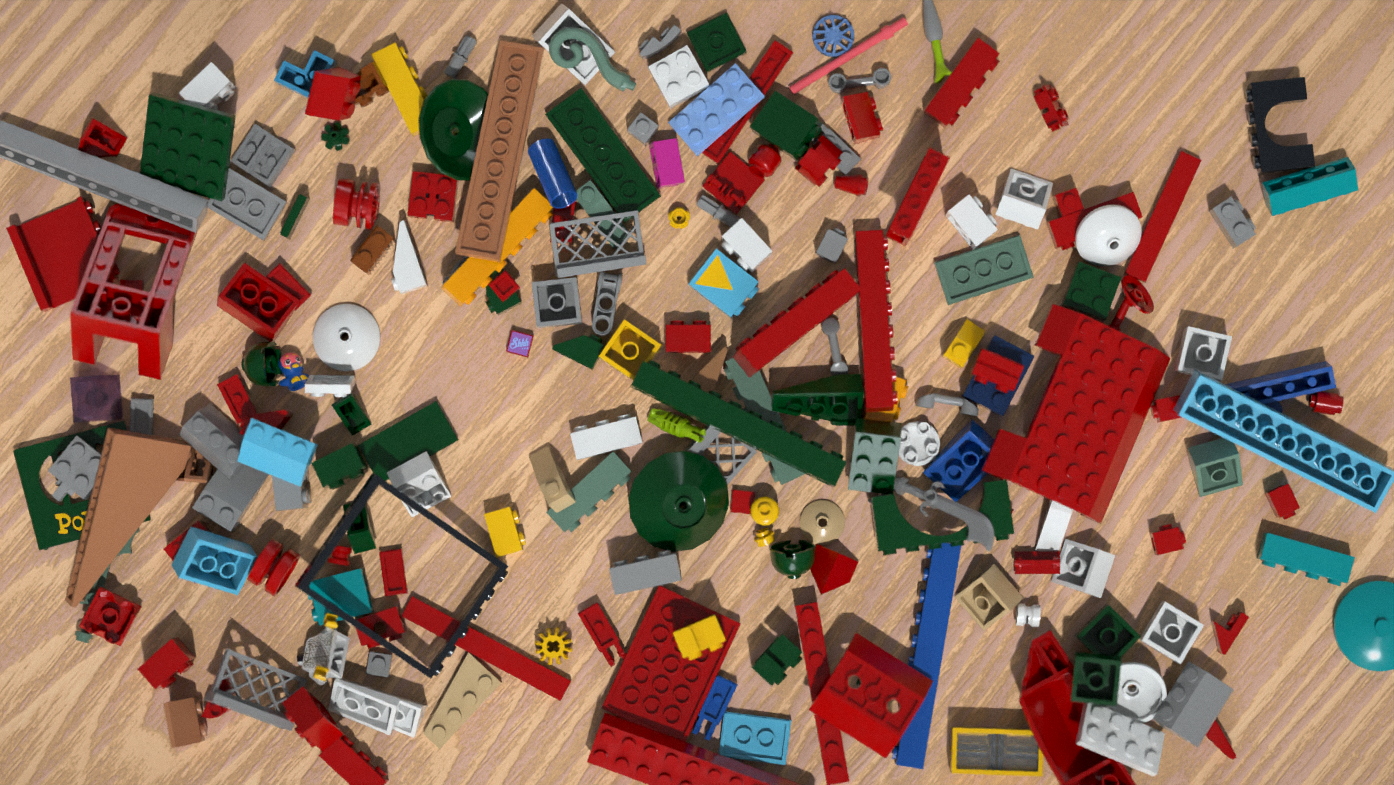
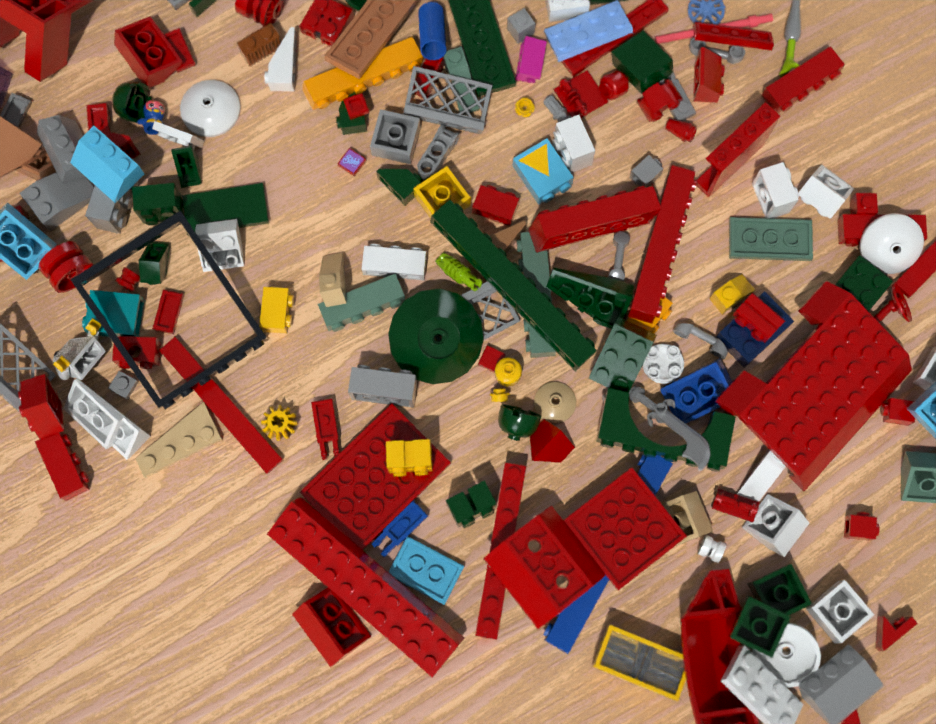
camera: 15 degrees right, 10 degrees down
(872, 60) = (733, 36): none -> red tile
(935, 629) = (625, 528): none -> red plate
(1056, 114) = (871, 118): red hinge -> none

